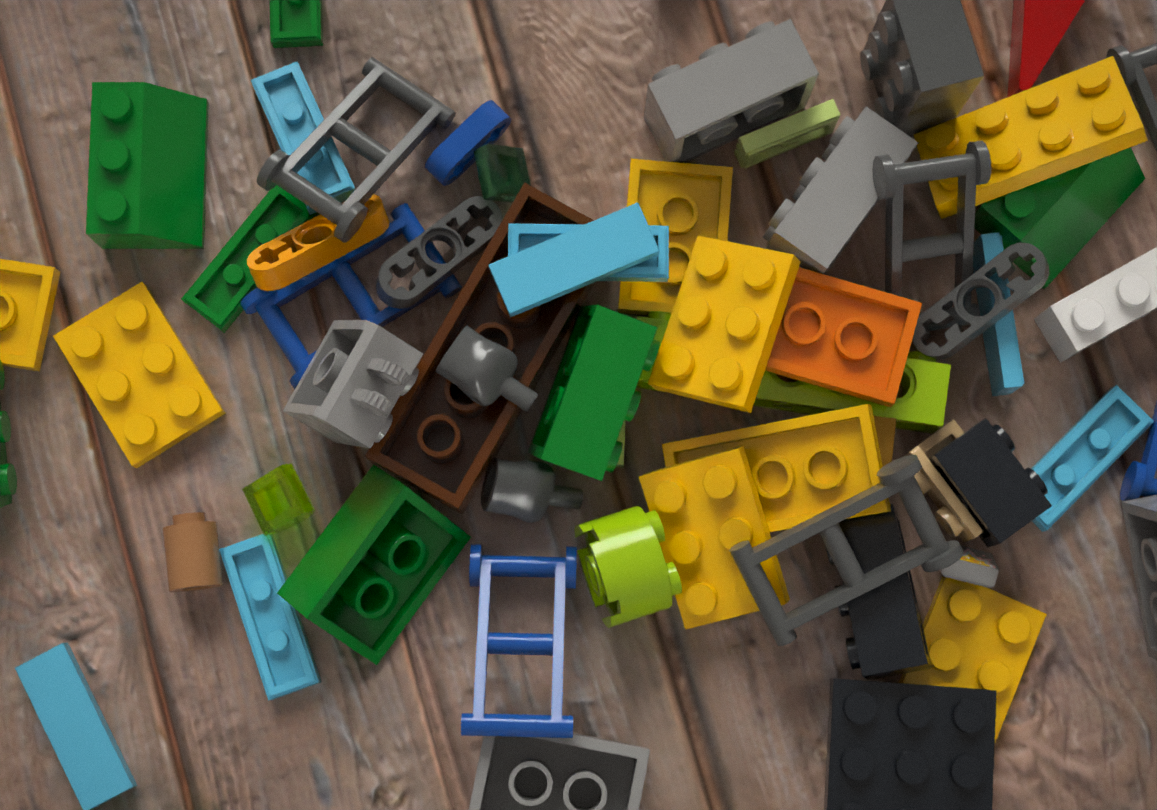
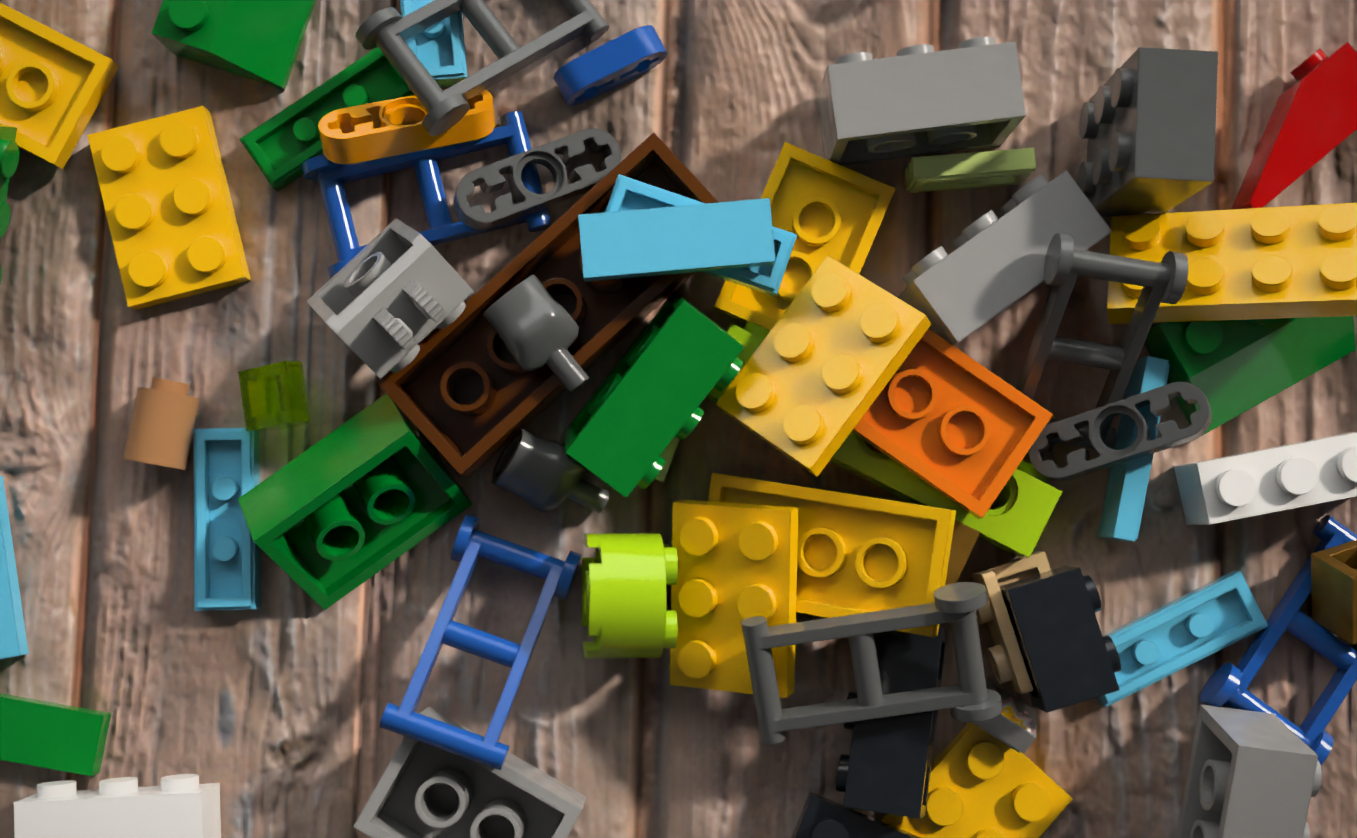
camera: 20 degrees right, 5 degrees up
(501, 171) = (636, 110): clear green plate -> none

